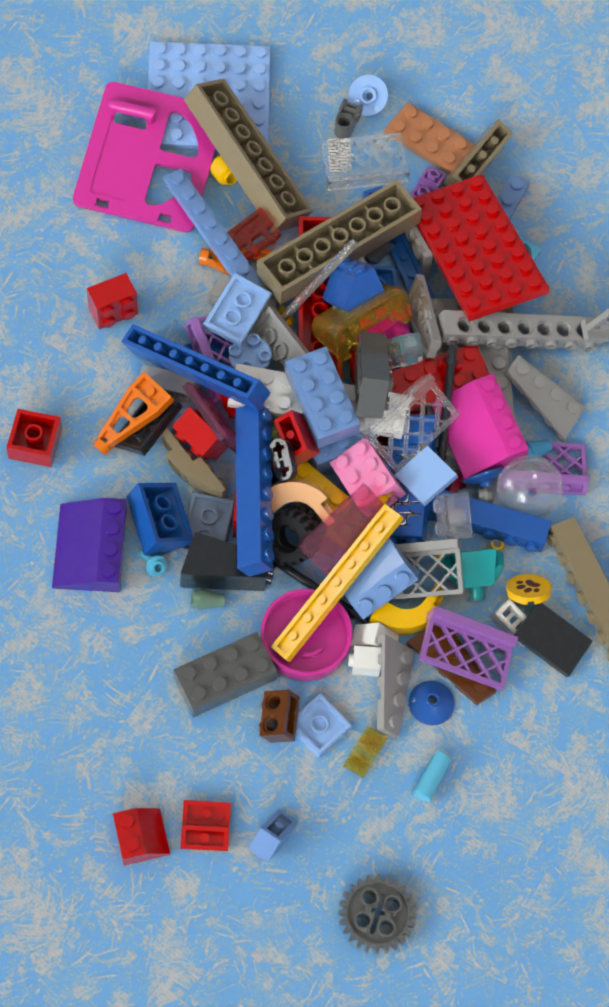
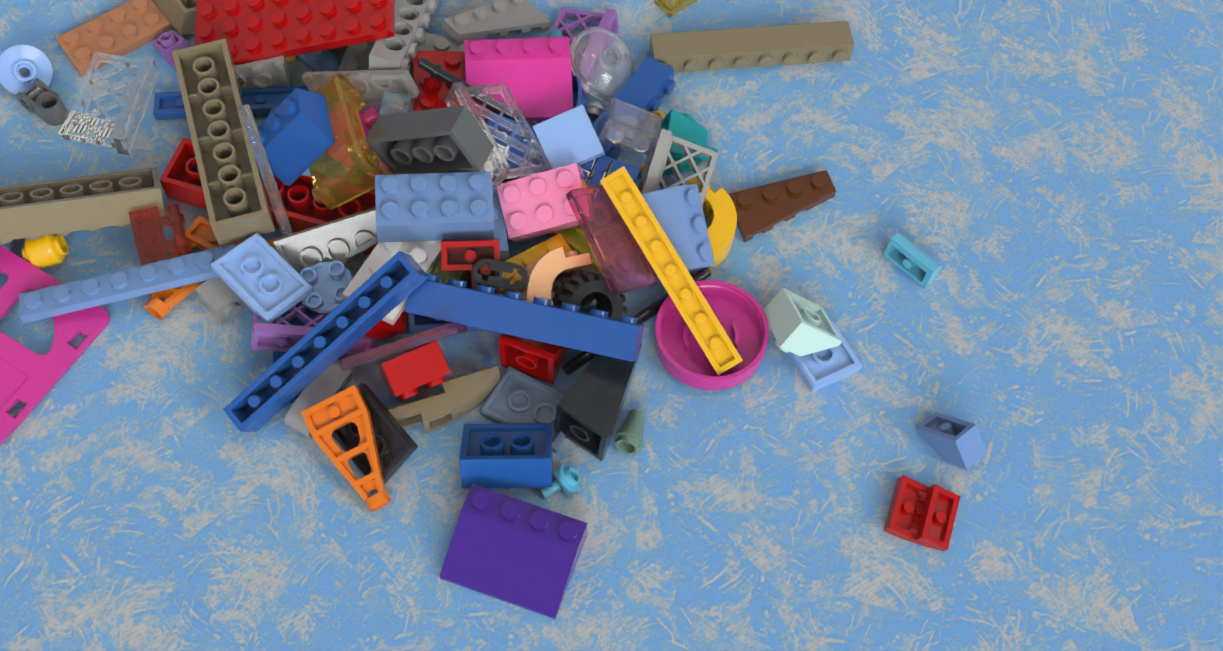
camera: 70 degrees left, 5 degrees down
(34, 437) = (336, 580): red brick -> none
(112, 301) = (176, 427): red brick -> none
(140, 835) = (924, 594): red slope -> none
(225, 674) = (739, 437): dark grey brick -> none
(280, 716) = (810, 384): reddish brown brick -> none
(334, 697) = (800, 324): none -> light aqua slope
(365, 660) = (761, 280): white brick -> none
(365, 752) = (868, 320): clear yellow slope -> none
(368, 634) = (734, 265): white slope -> none
(393, 684) = (798, 263): light grey wing -> none
(397, 920) = (1063, 358): dark grey gear -> none
(427, 712) = (817, 245): blue dish -> none
(467, 629) = (759, 165): medium lavender fence -> none
(503, 621) = (737, 140): white slope -> none
(528, 588) = (719, 102): yellow tile -> none
(552, 639) = (780, 101): black tile -> none

